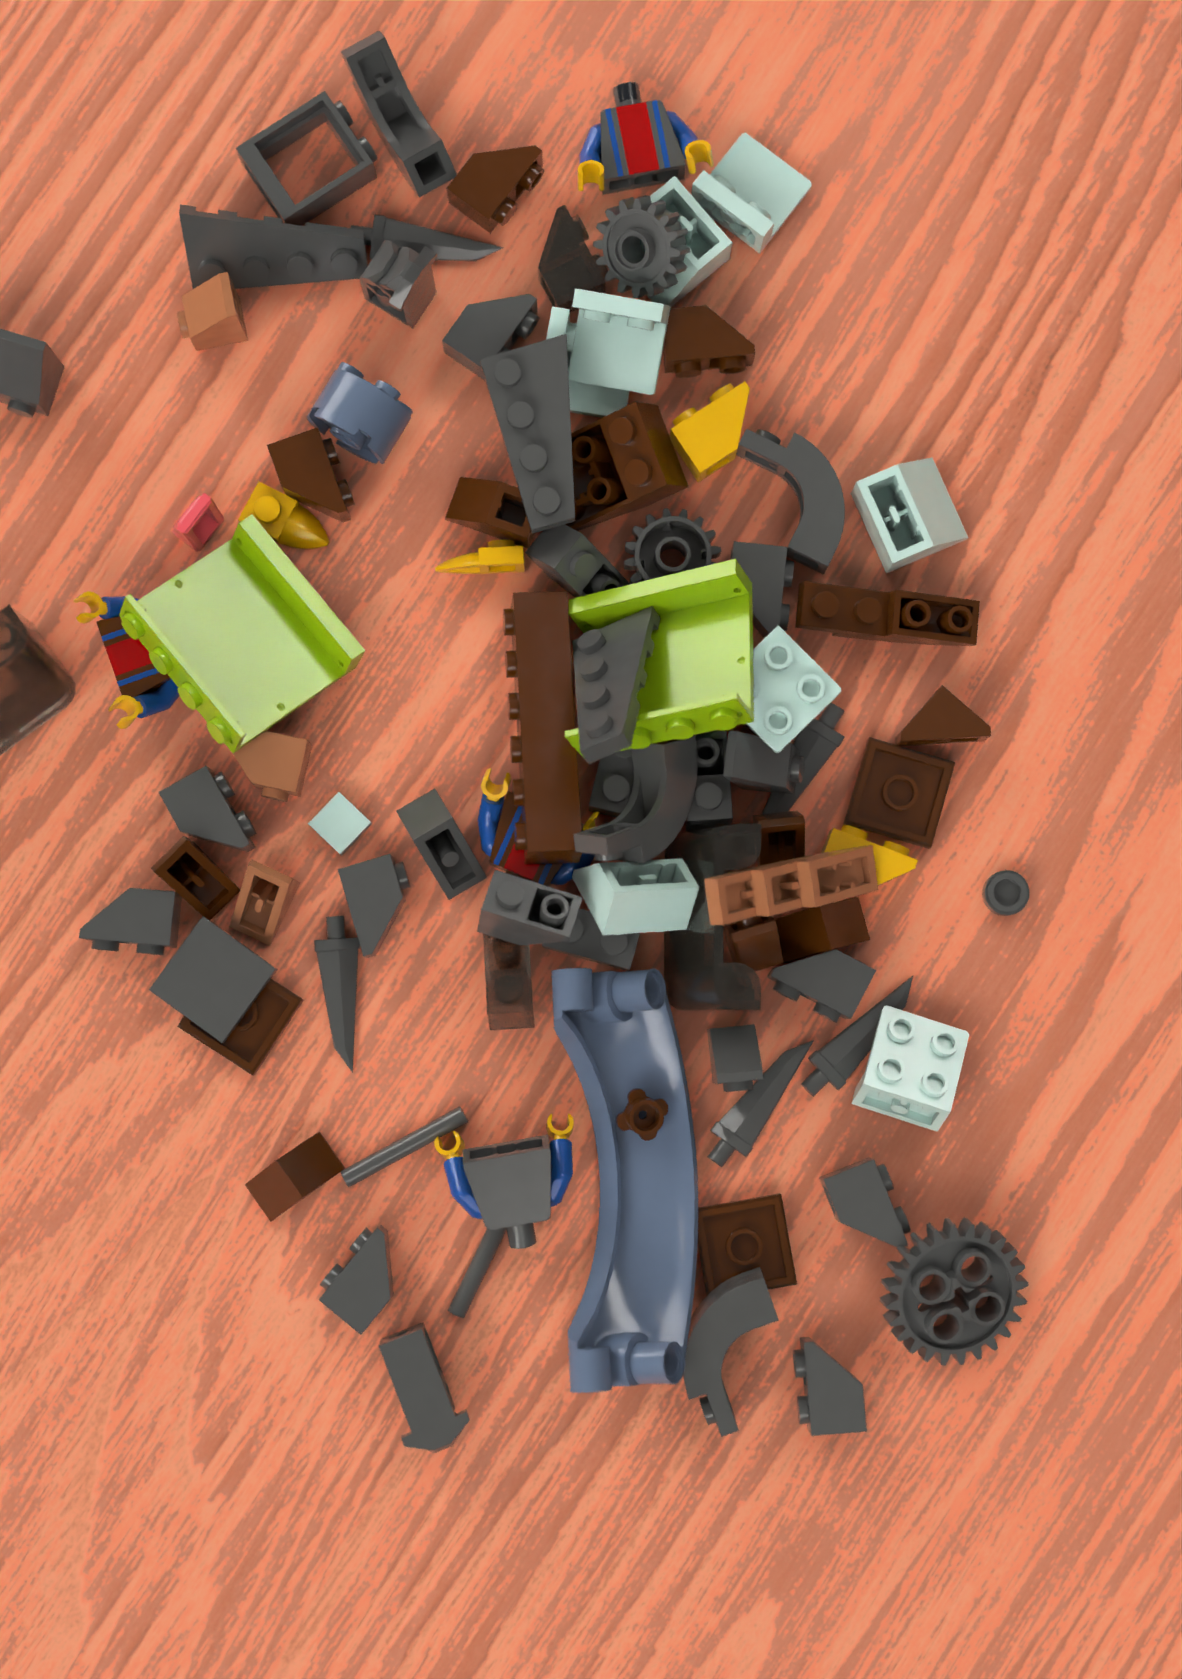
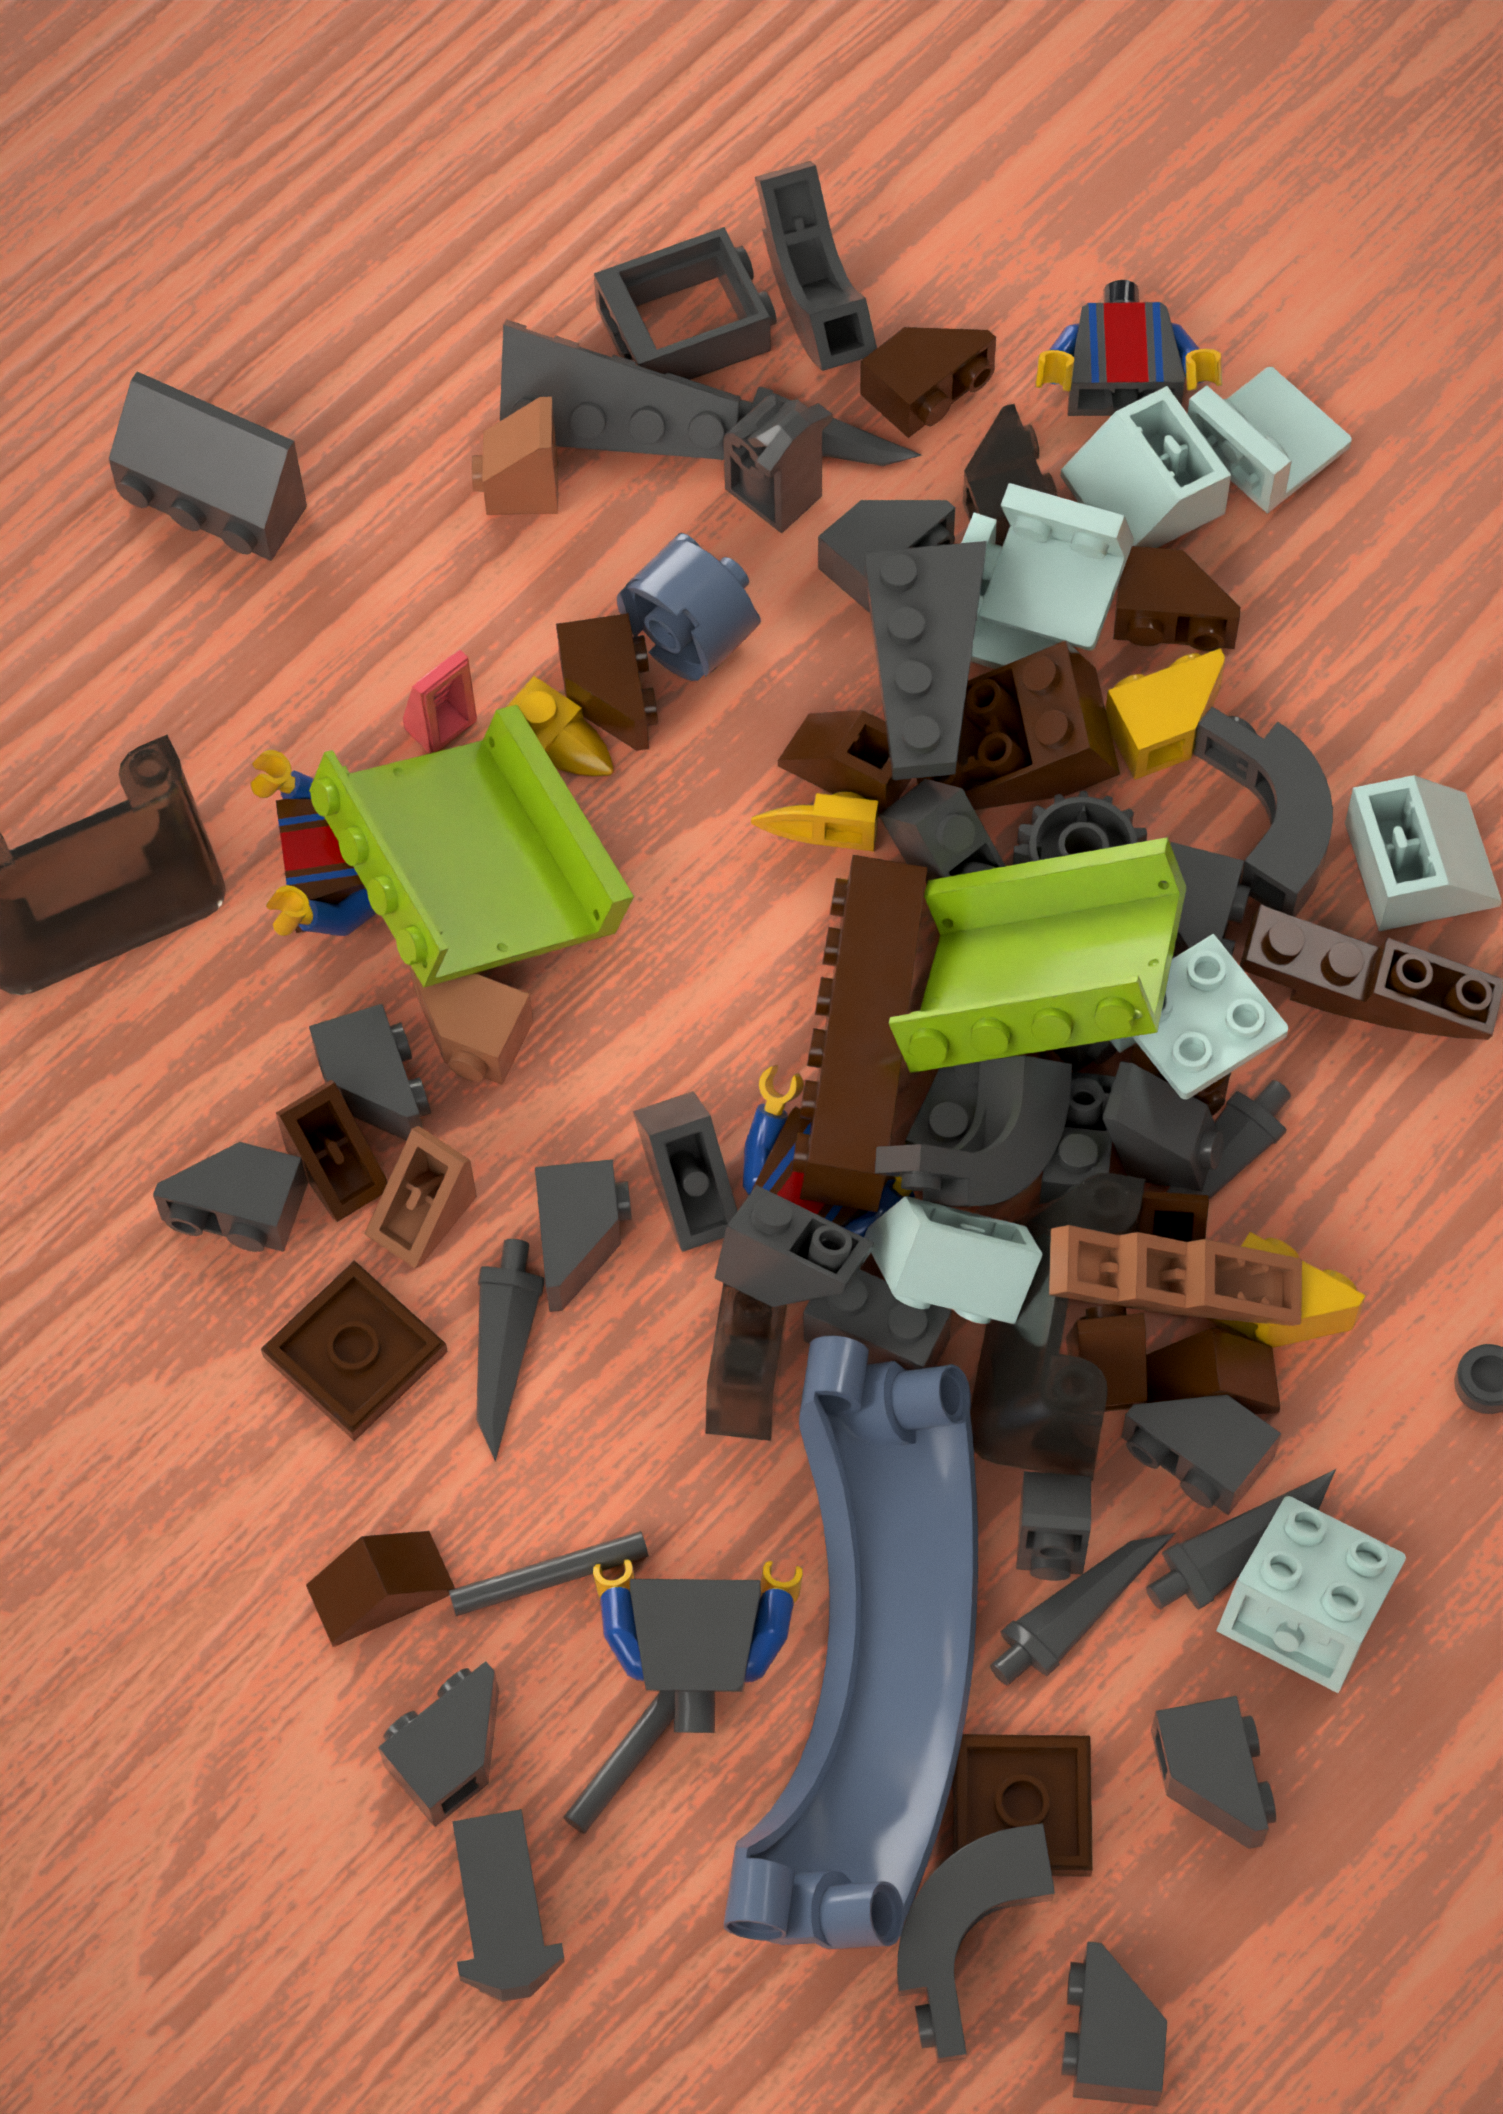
camera: 15 degrees right, 20 degrees down
(213, 979) = (326, 1289): dark grey tile -> none
(340, 823) = (550, 1124): light aqua tile -> none
(608, 679) = (964, 962): dark grey wing -> none
(651, 1123) = (923, 1577): reddish brown plate -> none
(663, 243) = (1136, 447): dark grey gear -> none
(899, 793) = (1355, 1216): reddish brown tile -> none
(943, 721) = (1429, 1130): reddish brown slope -> none
(964, 1327) = (1337, 1977): dark grey gear -> none

